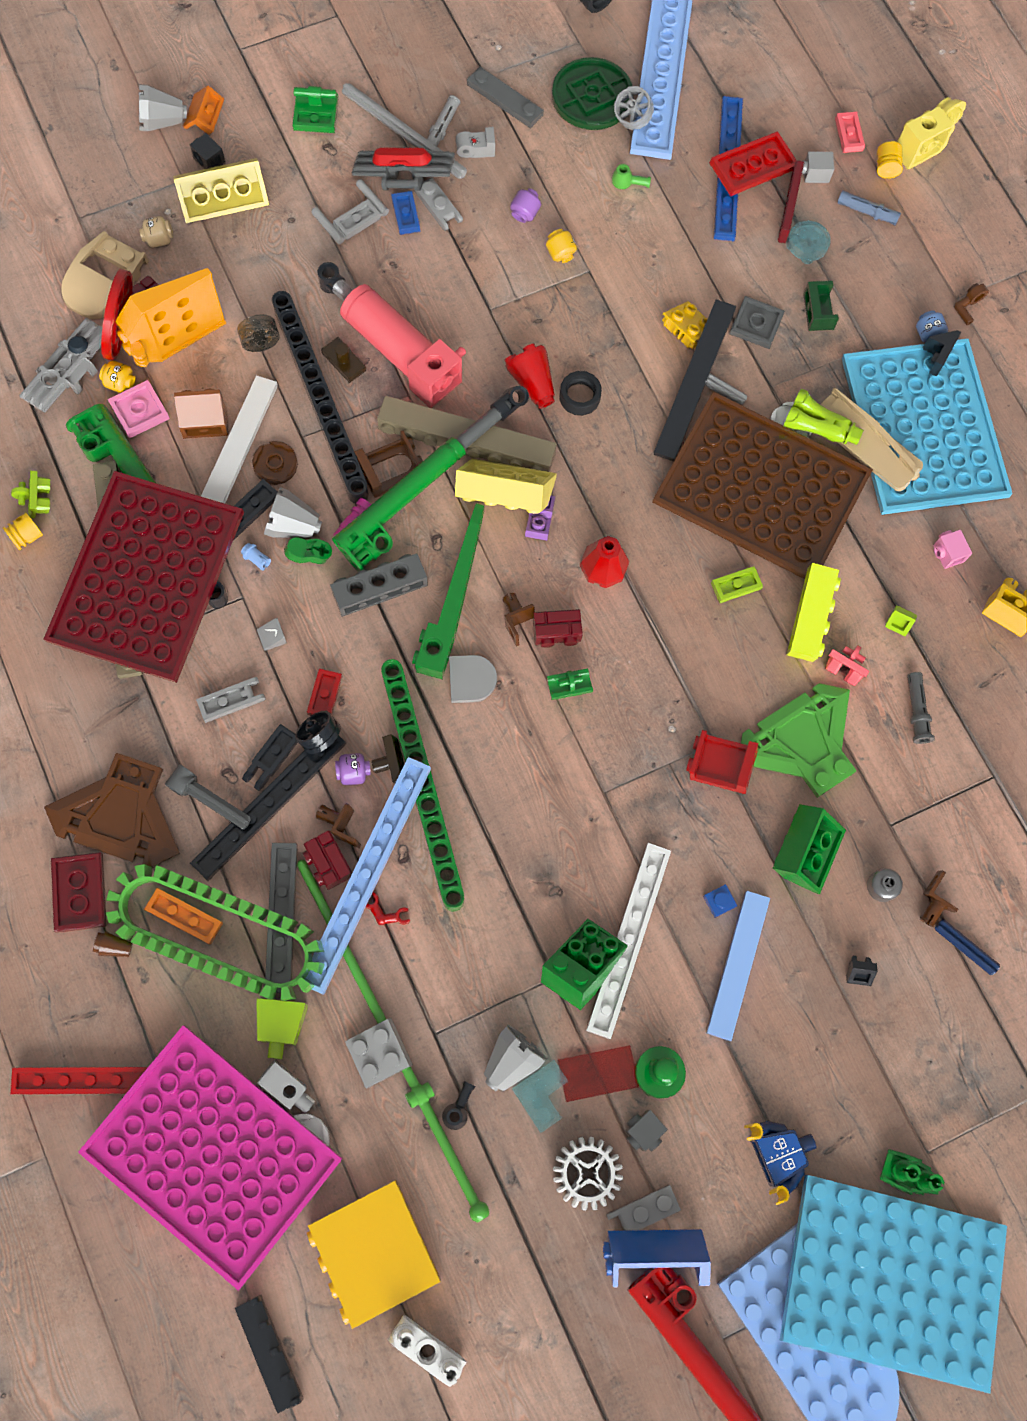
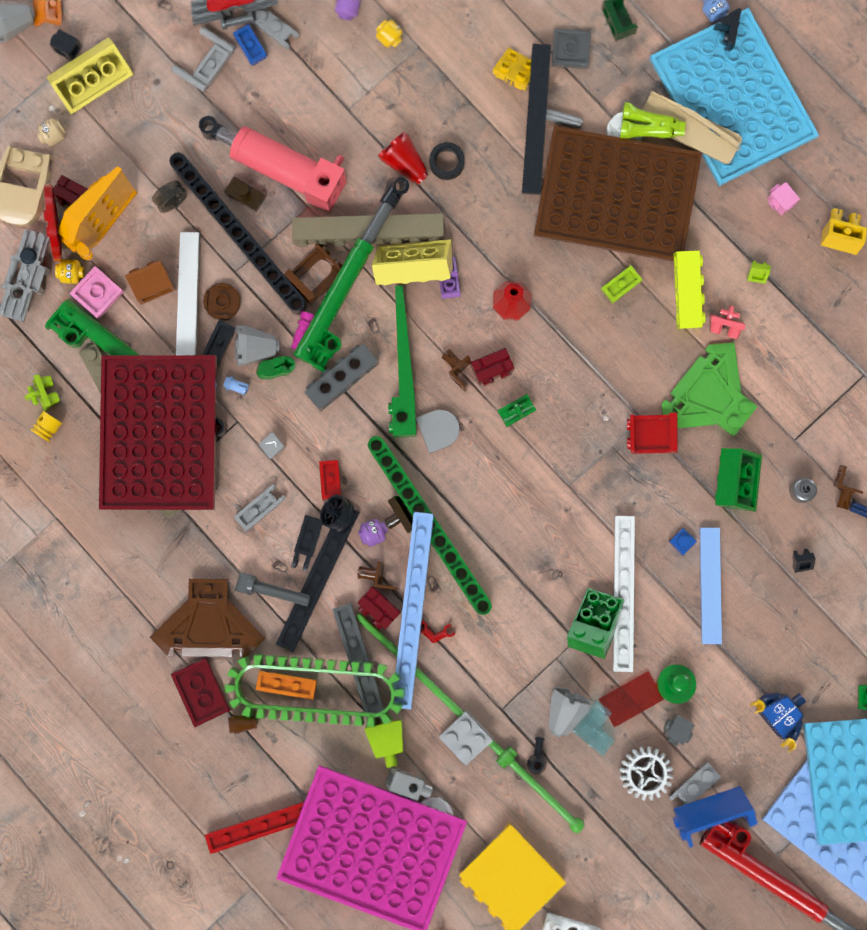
camera: 10 degrees left, 10 degrees up
(920, 718) = (795, 347): dark grey pin -> none

